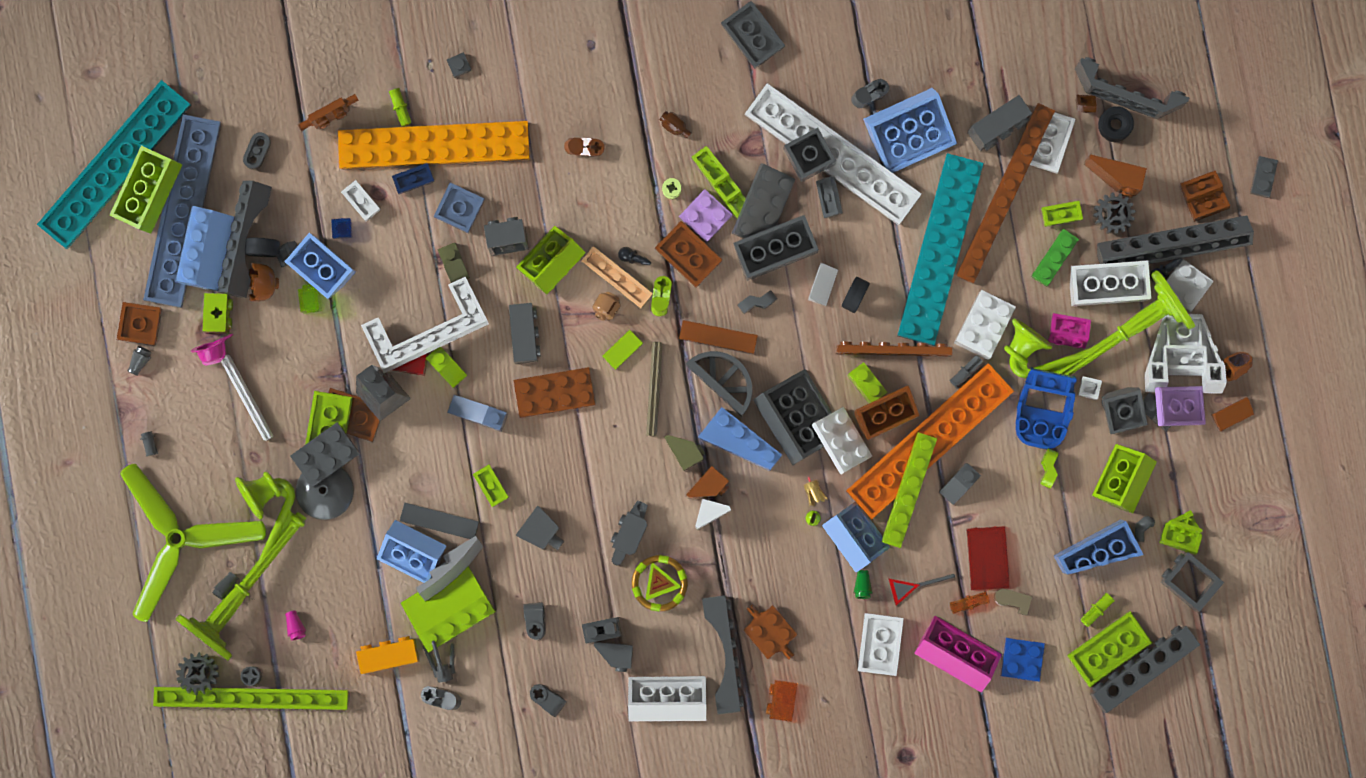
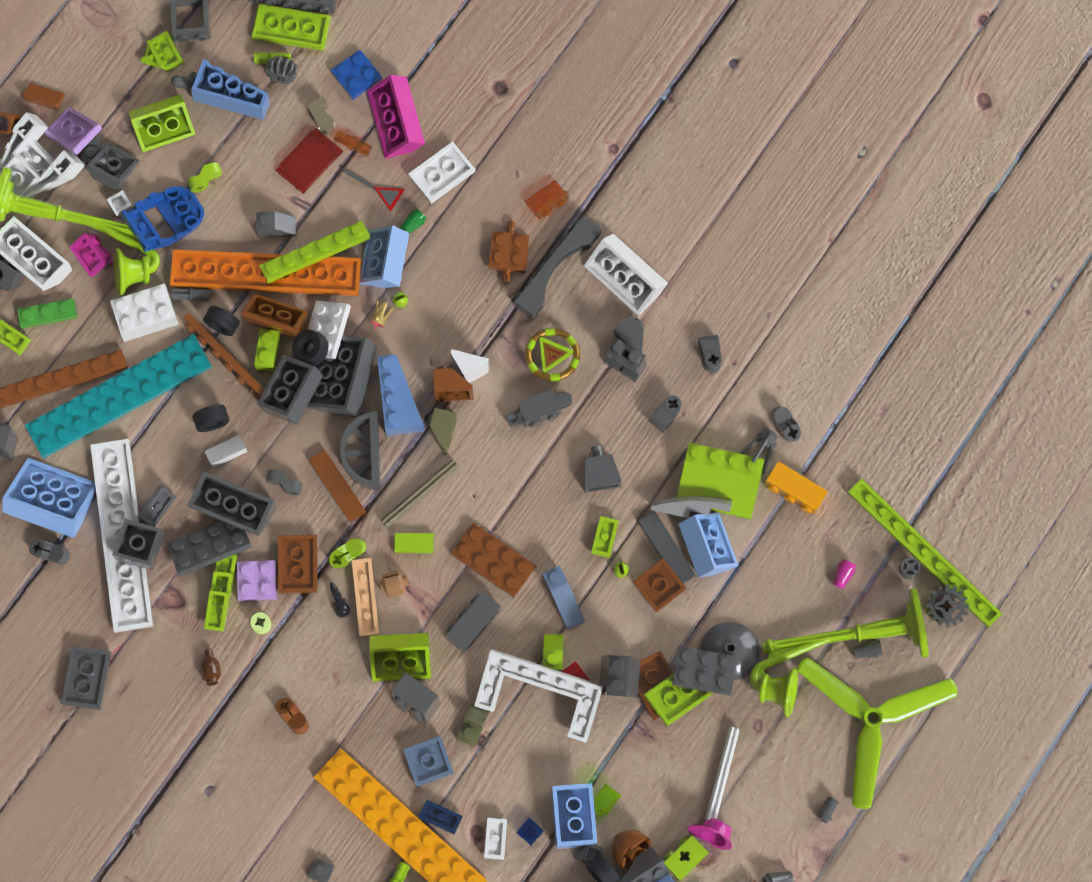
camera: 135 degrees left, 10 degrees down
(417, 488) = (660, 585): none -> dark orange plate
(454, 477) = (616, 570): none -> lime hinge
(820, 369) = (290, 389): none -> dark grey brick
(838, 403) = (319, 350): none -> black tyre
(922, 372) = (221, 320): none -> black tyre
(1078, 605) = (281, 70): none -> dark grey gear

